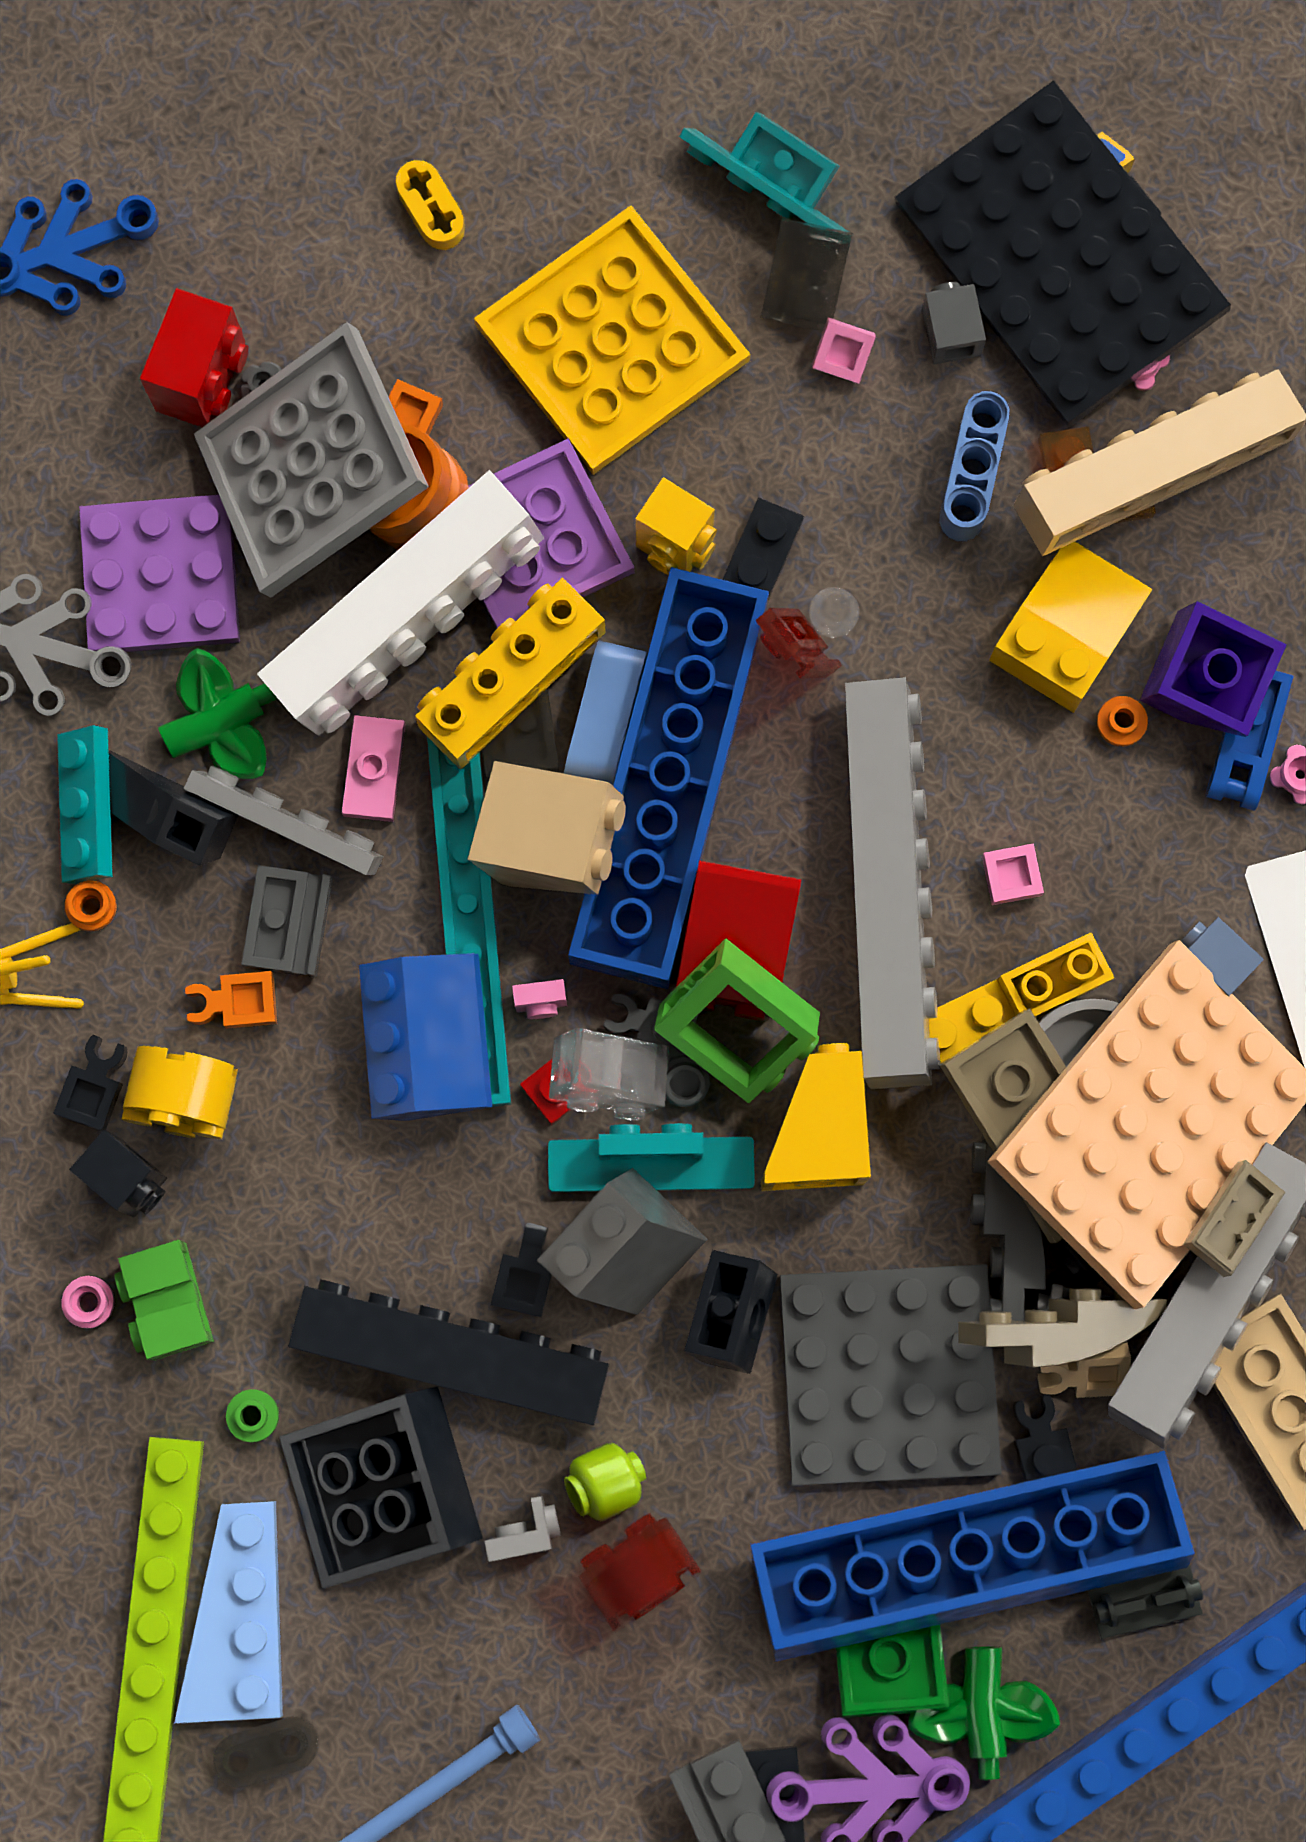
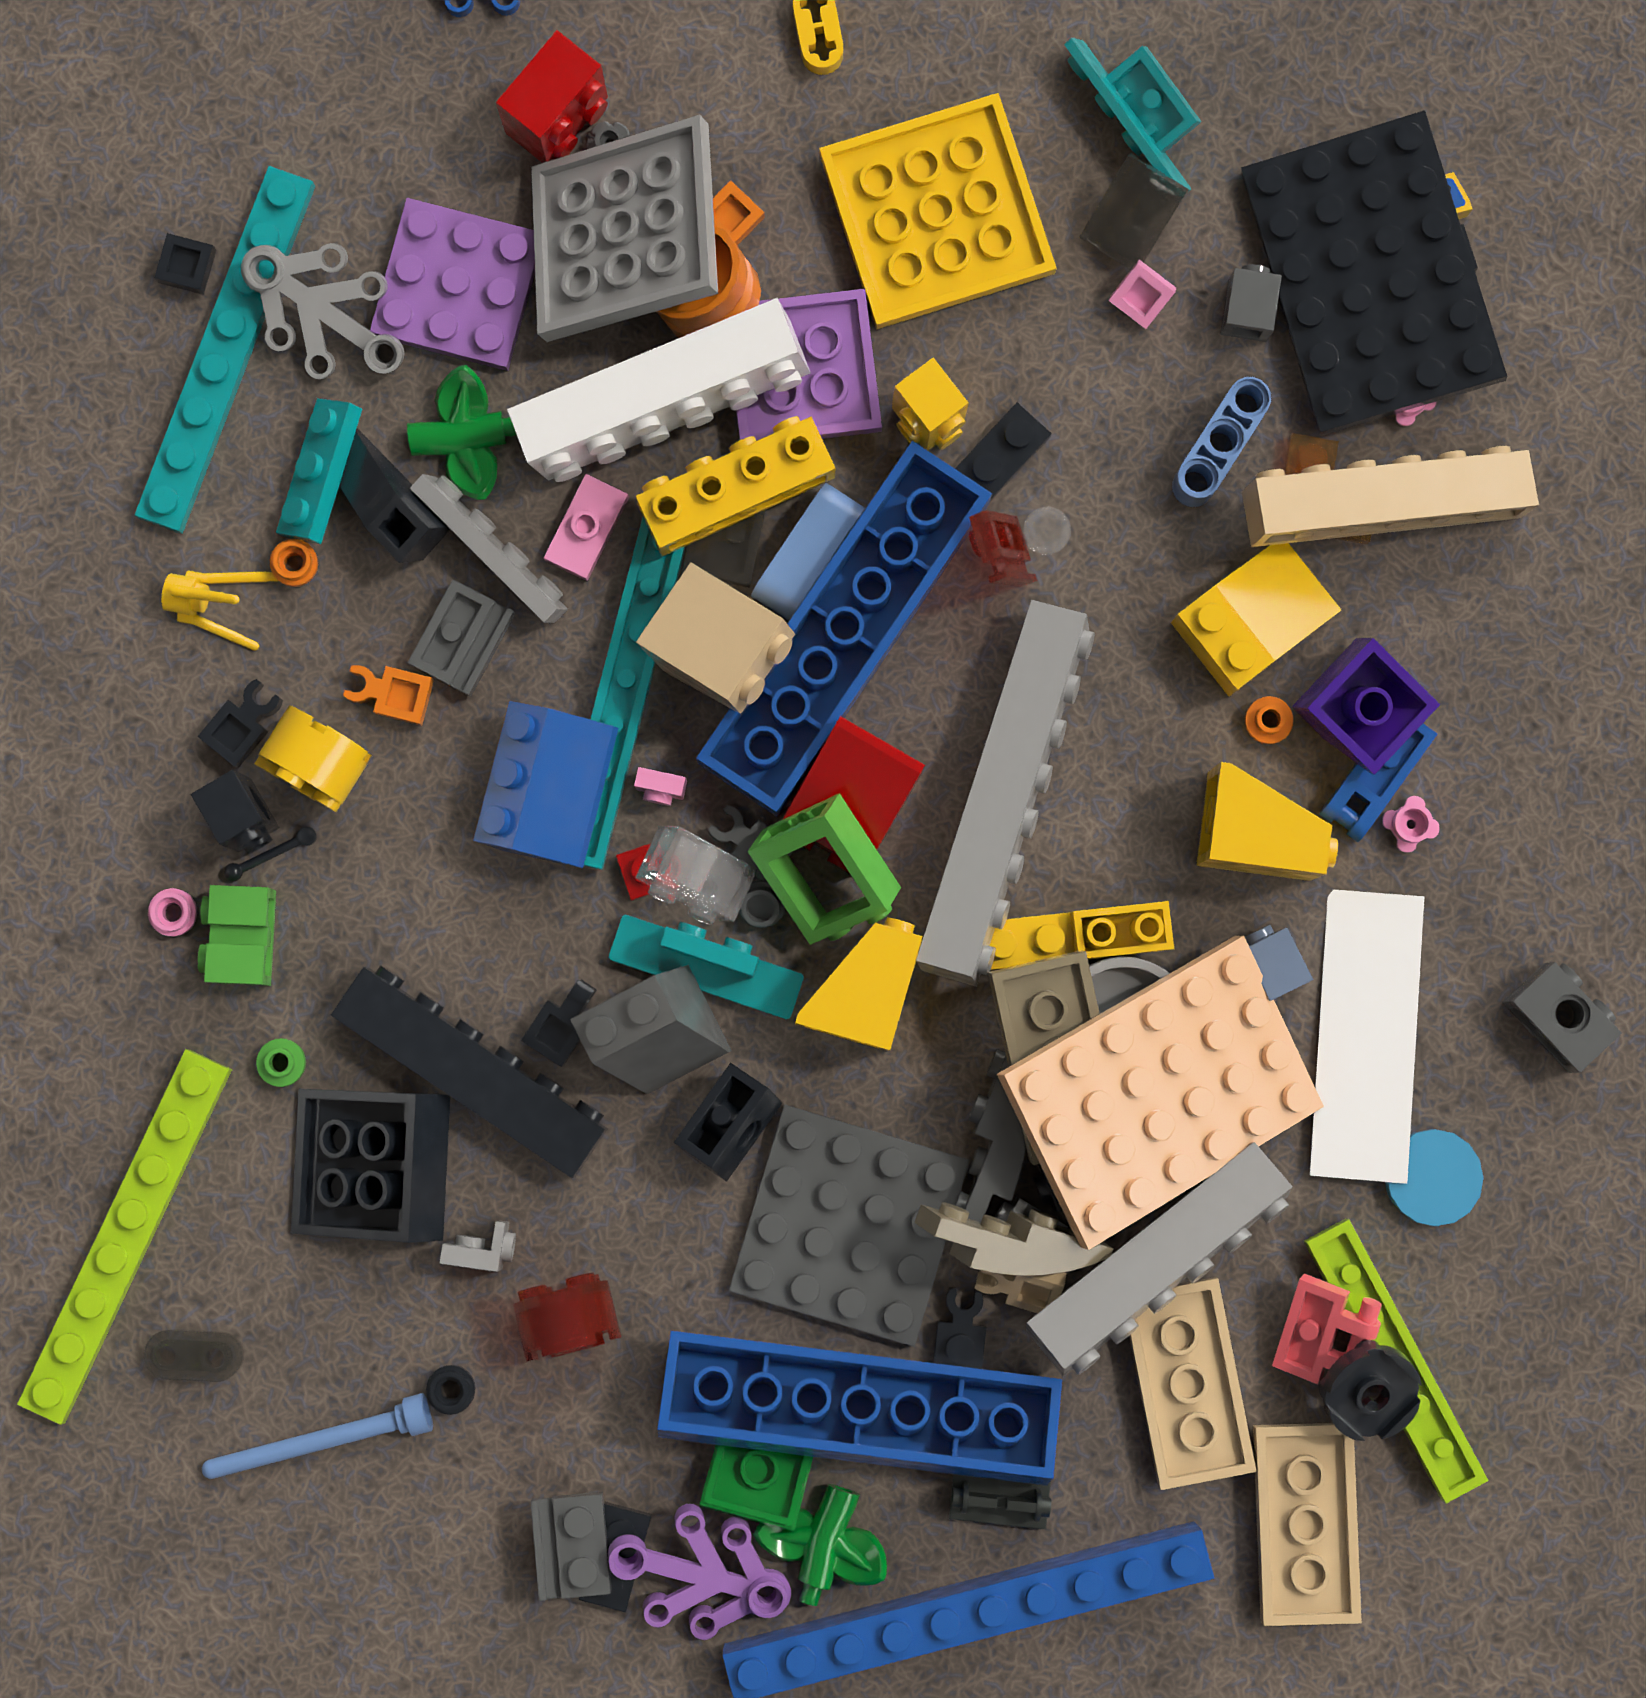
camera: 15 degrees right, 5 degrees up
(197, 1177) = (305, 836): none -> black hinge
(236, 1635) = (203, 1246): light blue wing -> none
(541, 1708) = (435, 1393): none -> black plate
(605, 1481) = (566, 1229): lime head -> none
(1012, 874) = (1119, 823): bright pink plate -> none
(1156, 829) = (1260, 830): none -> yellow slope
(1234, 1218) = (1198, 1200): dark tan plate -> none

